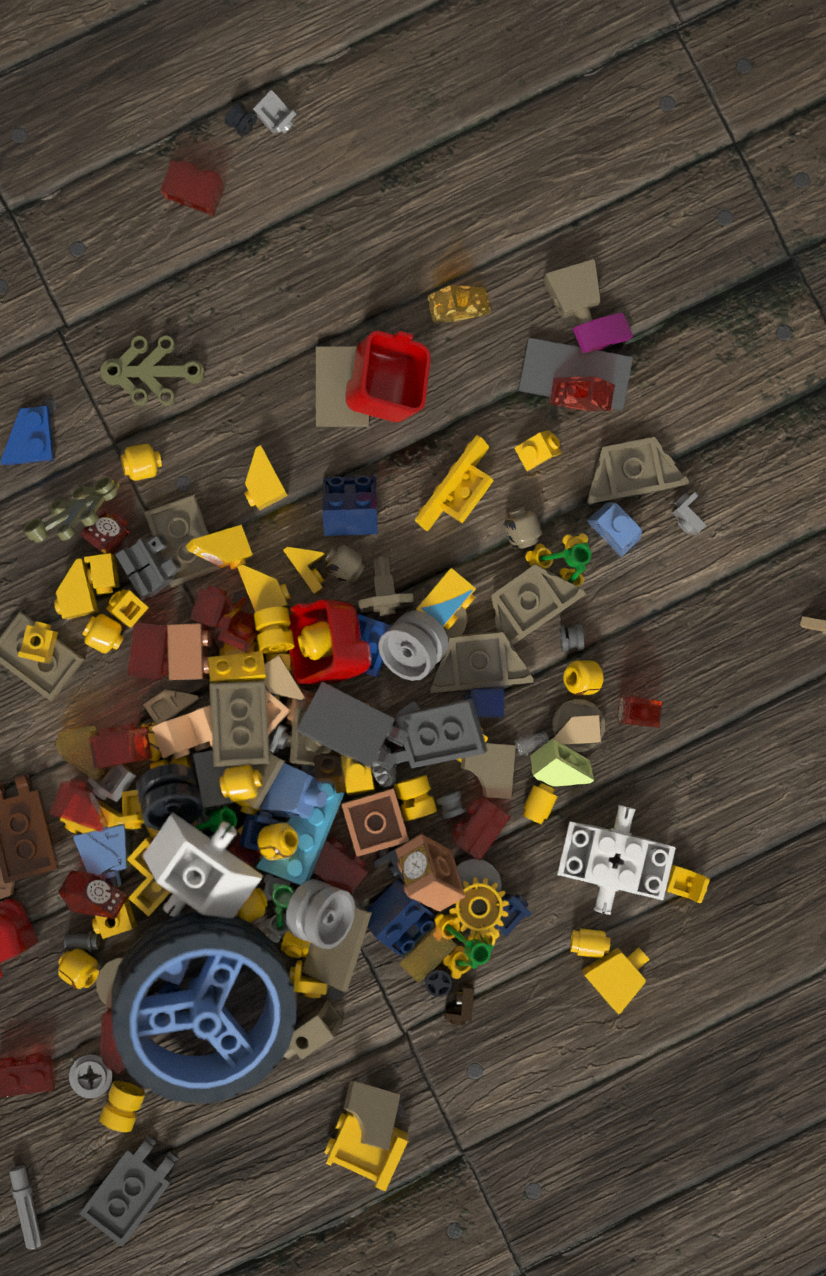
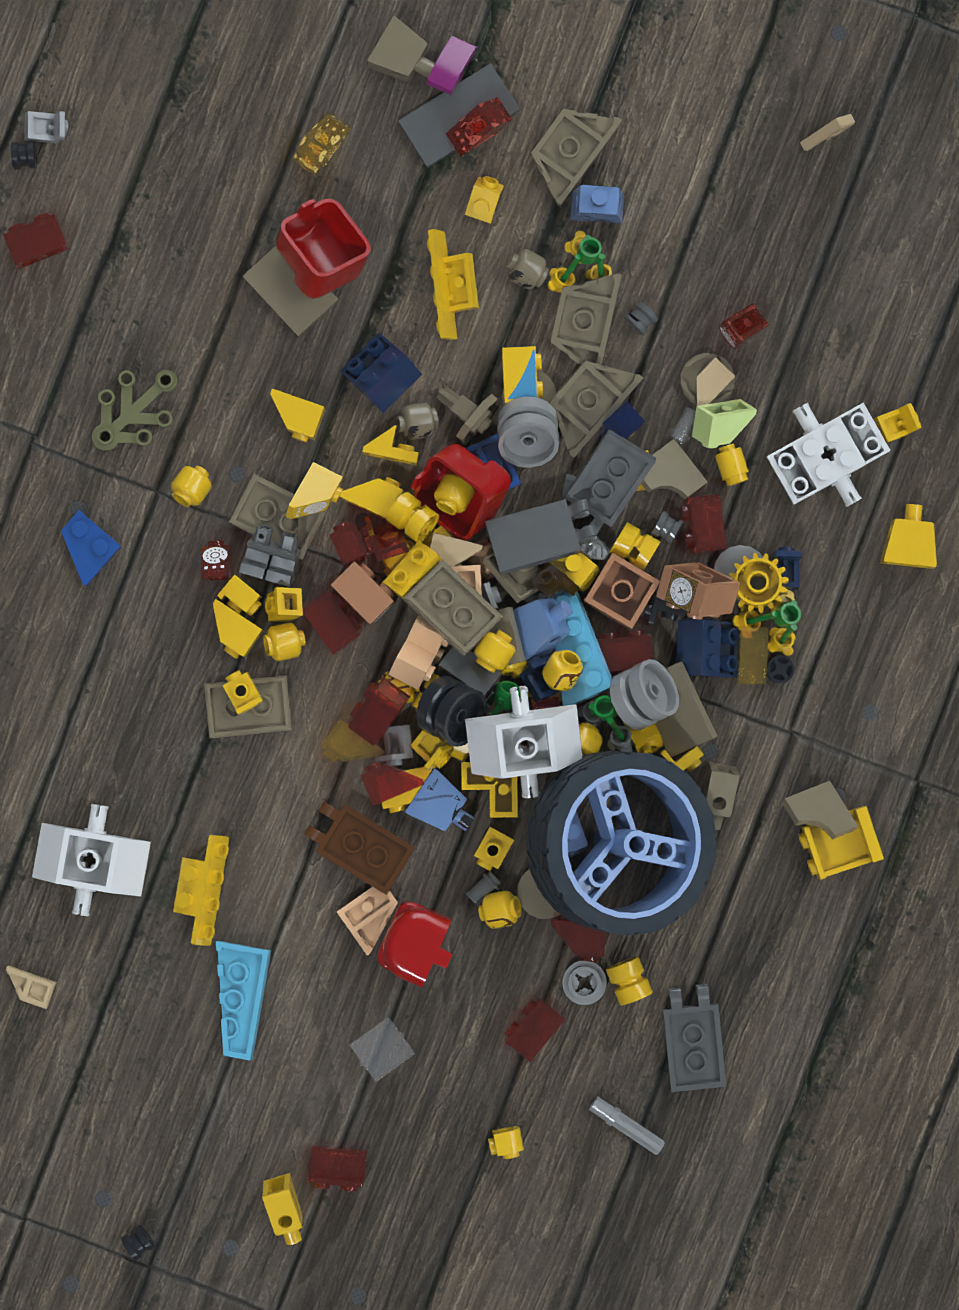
camera: 45 degrees left, 0 degrees up
(71, 510) = (176, 566): olive plant -> none
(91, 895) = (459, 843): clear red slope -> none
(168, 704) = (383, 650): tan tile -> none
(465, 1001) = (813, 664): dark brown bracket -> none
(583, 677) = (677, 339): yellow head -> none
(589, 943) = (866, 535): yellow brick -> none
(687, 518) = (647, 148): light grey bracket -> none

